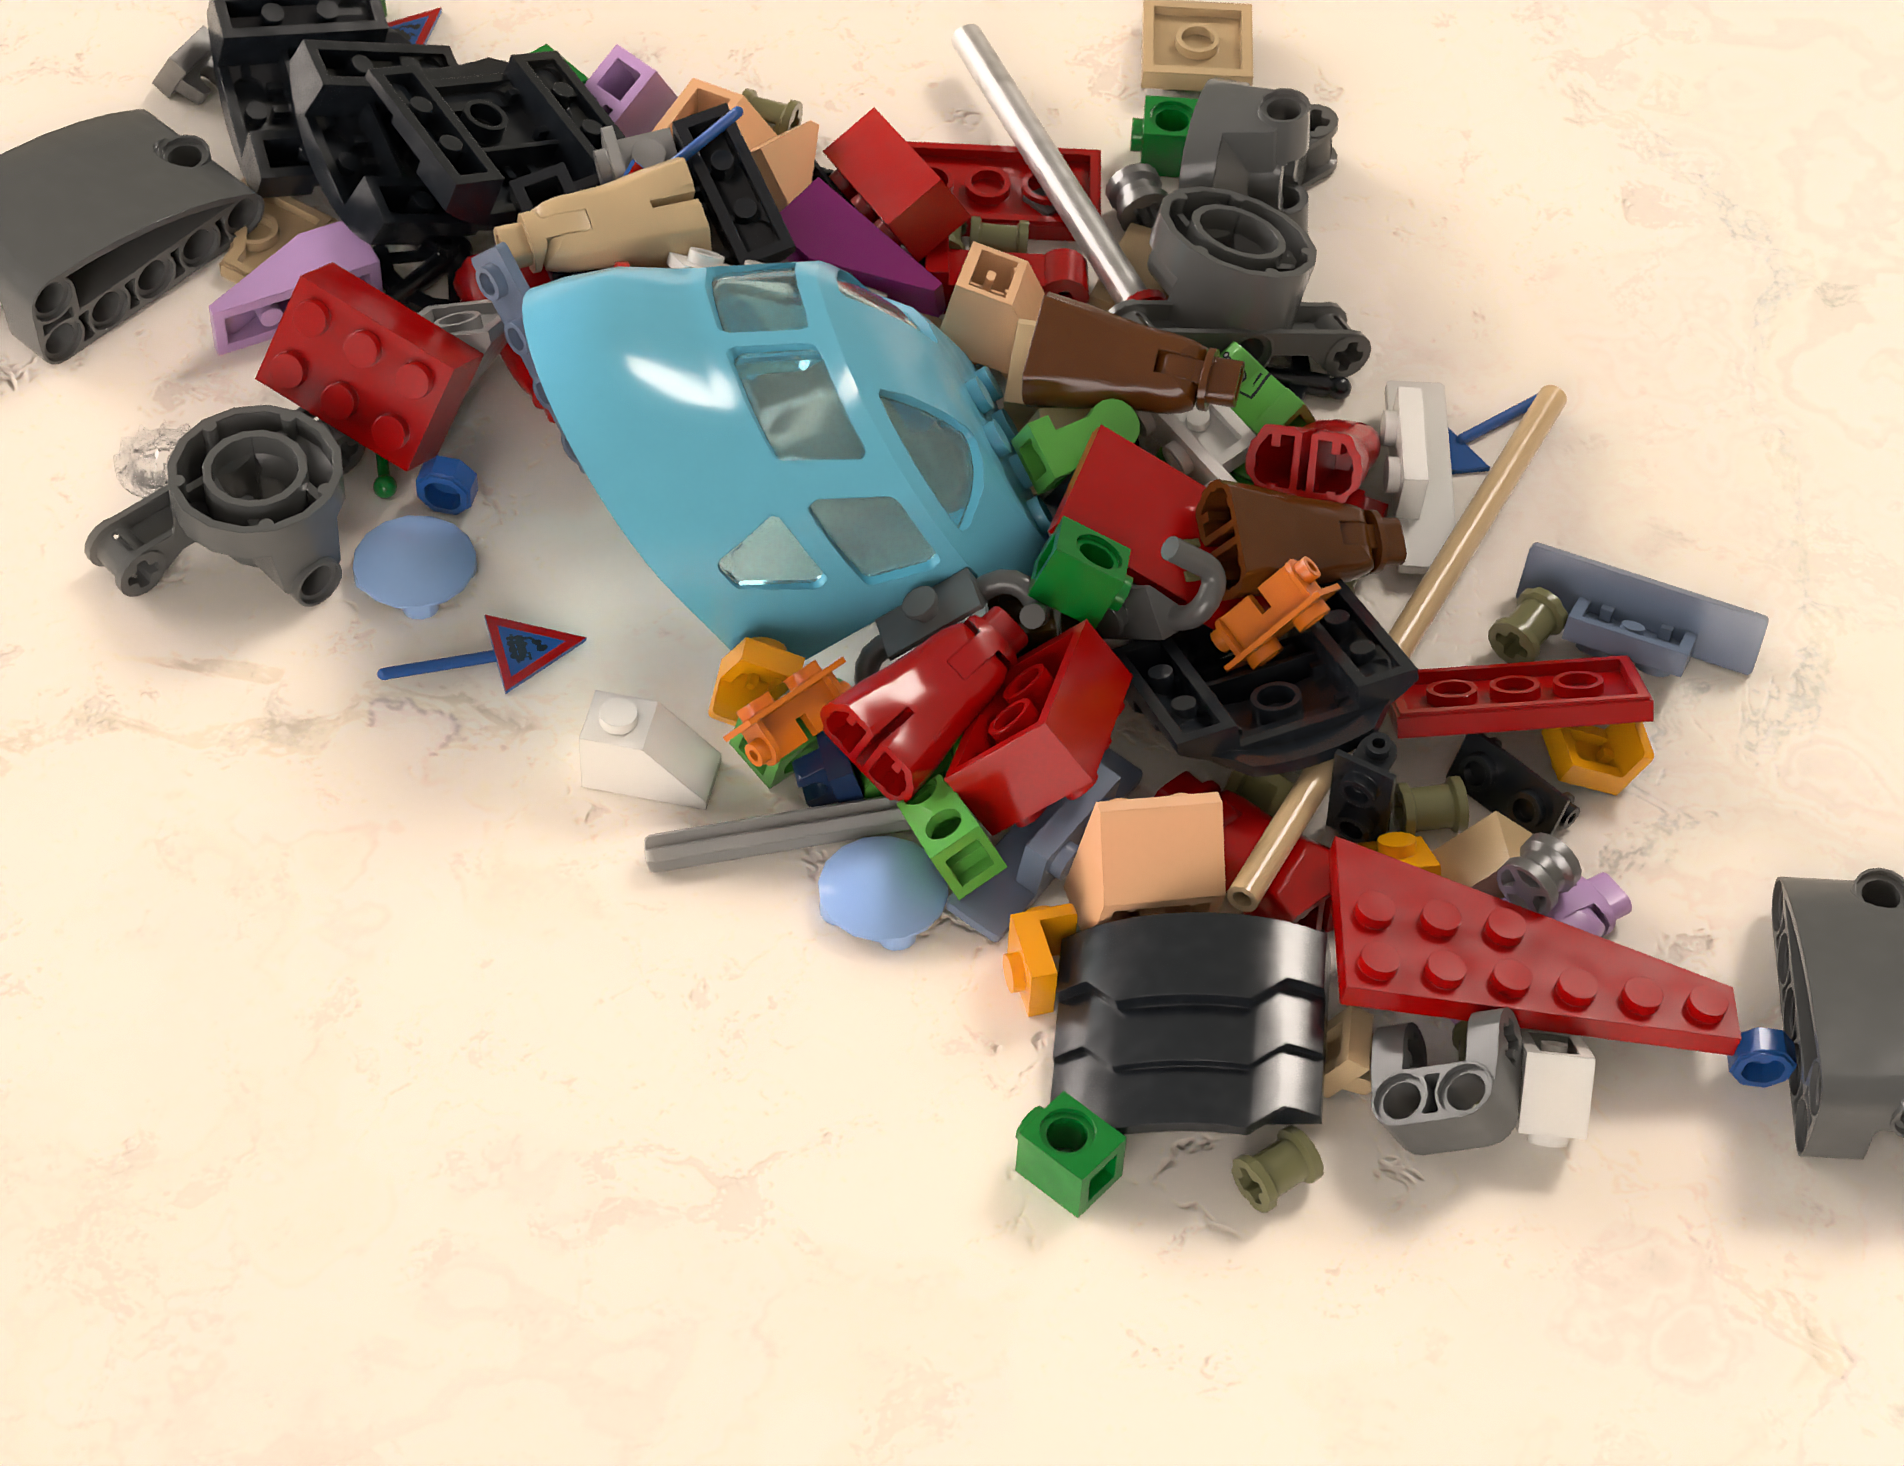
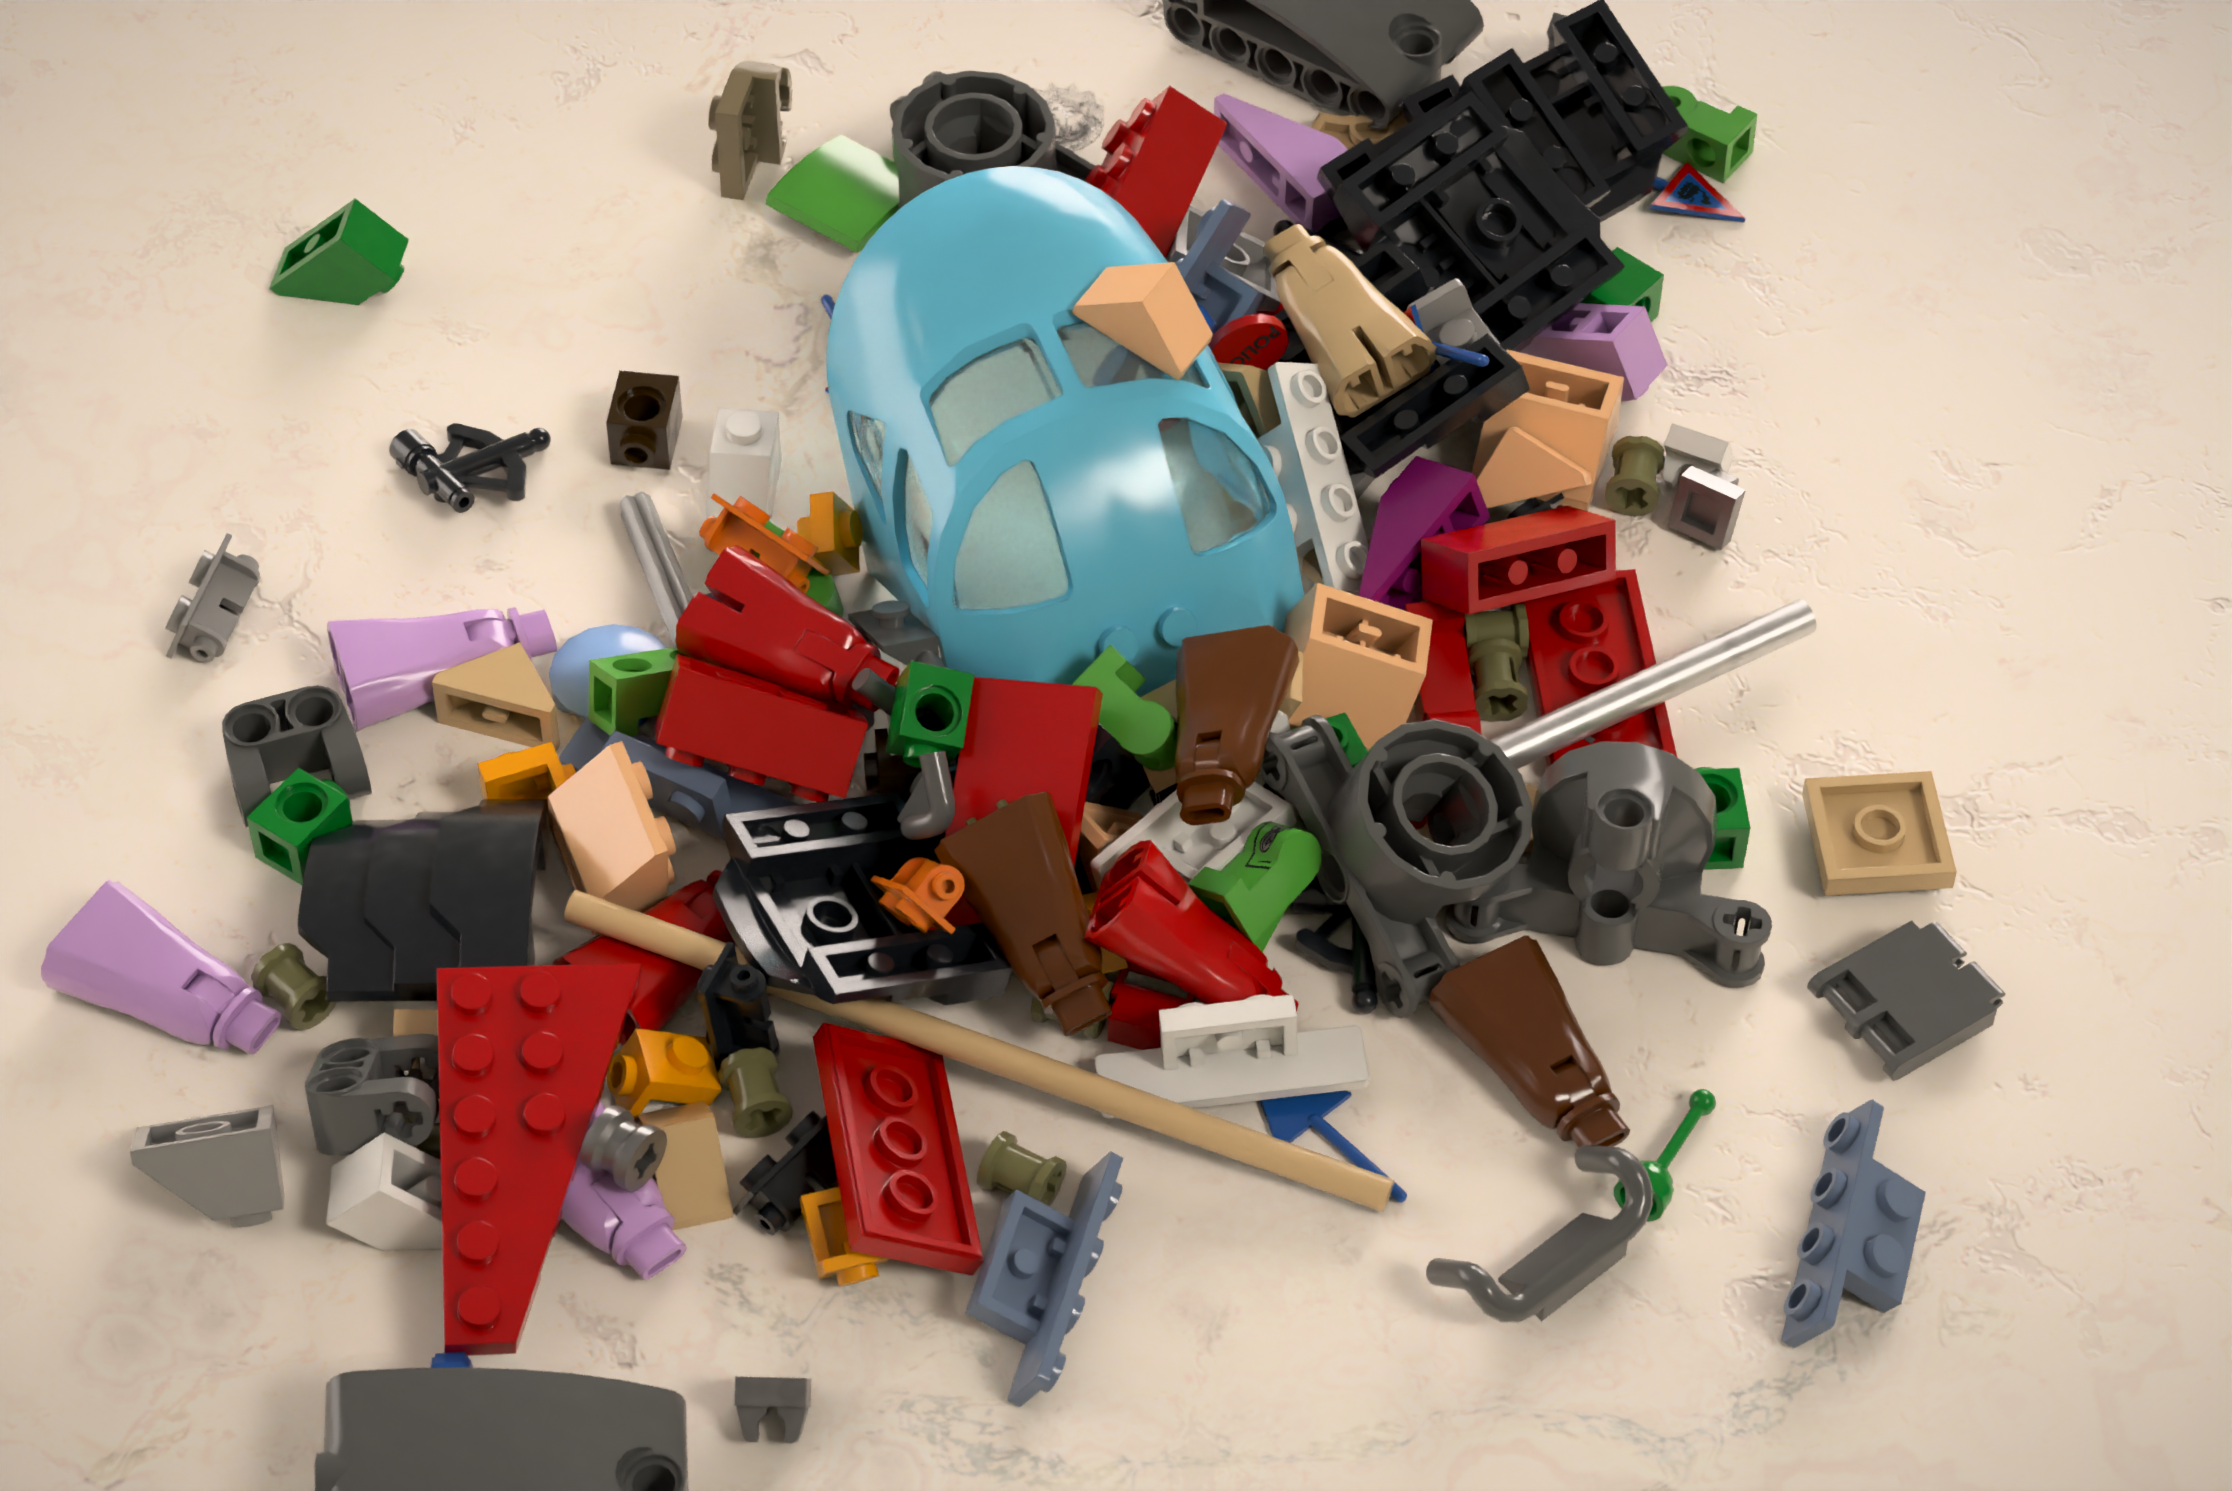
camera: 85 degrees right, 0 degrees up
(138, 688) = (749, 123): none -> dark tan slope
(222, 1093) = (342, 258): none -> green slope
(234, 636) = (840, 192): none -> bright green slope
(544, 828) = (644, 420): none -> dark brown brick
(581, 1011) = (449, 476): none -> black piece
(725, 1241) = (200, 621): none -> light grey hinge
(732, 263) = (1148, 314): none -> light nougat slope
(761, 72) = (1692, 448): none -> white tile
(818, 77) = (1707, 506): none -> flat silver tile
(852, 1040) = (391, 662): none -> lavender piece
(915, 968) = (498, 698): none -> tan slope
(988, 1198) = (288, 732): none -> dark grey piece
(1253, 1291) = (140, 964): none -> lavender piece
(1368, 58) = (1910, 996): none -> dark grey plate
(1402, 282) = (1523, 1028): none -> reddish brown piece
(1492, 1232) = (217, 1163): none -> light grey slope
(1550, 238) = (1701, 1103): none -> green hinge
(1595, 134) = (1856, 1232): none -> sand blue bracket
(1620, 290) = (1565, 1260): none -> dark grey piece
(1768, 821) = (758, 1394): none -> flat silver tile

